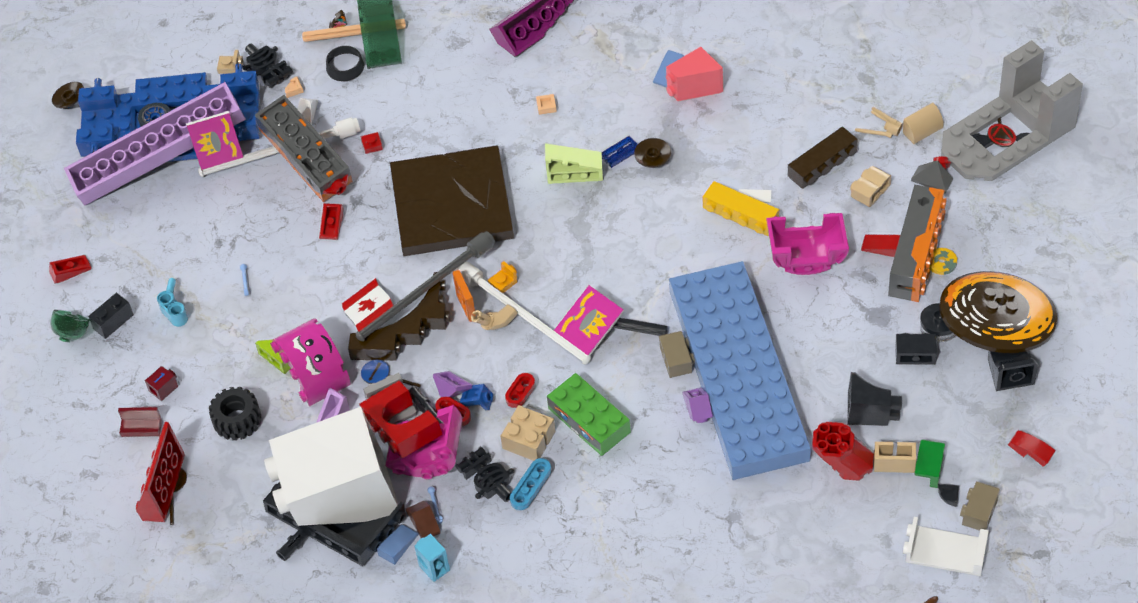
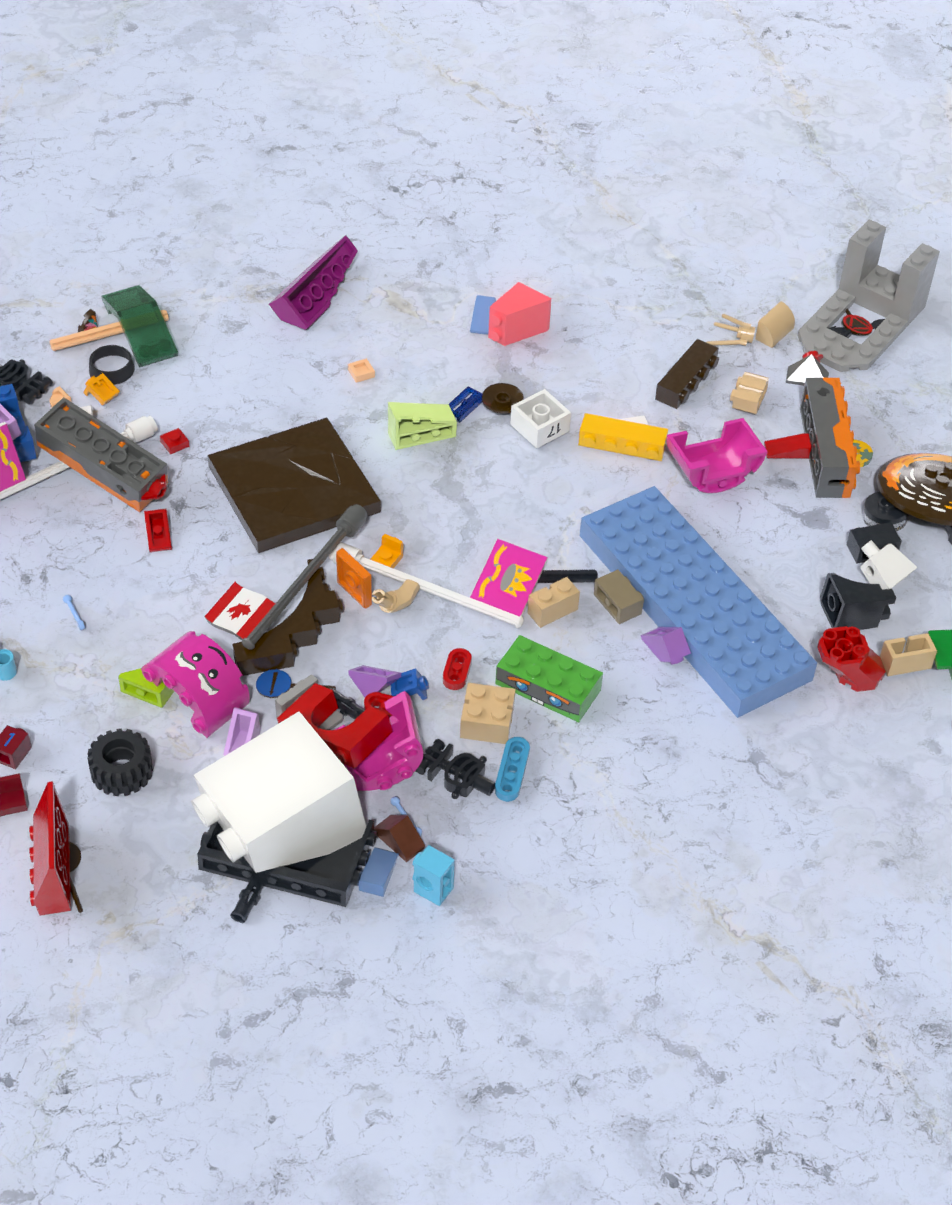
camera: 25 degrees left, 5 degrees down
(328, 85) = (101, 389): none -> light orange bracket
(619, 349) = (552, 604): none -> tan piece
(675, 178) = (540, 418): none -> white brick
(912, 374) = (885, 565): none -> white torso

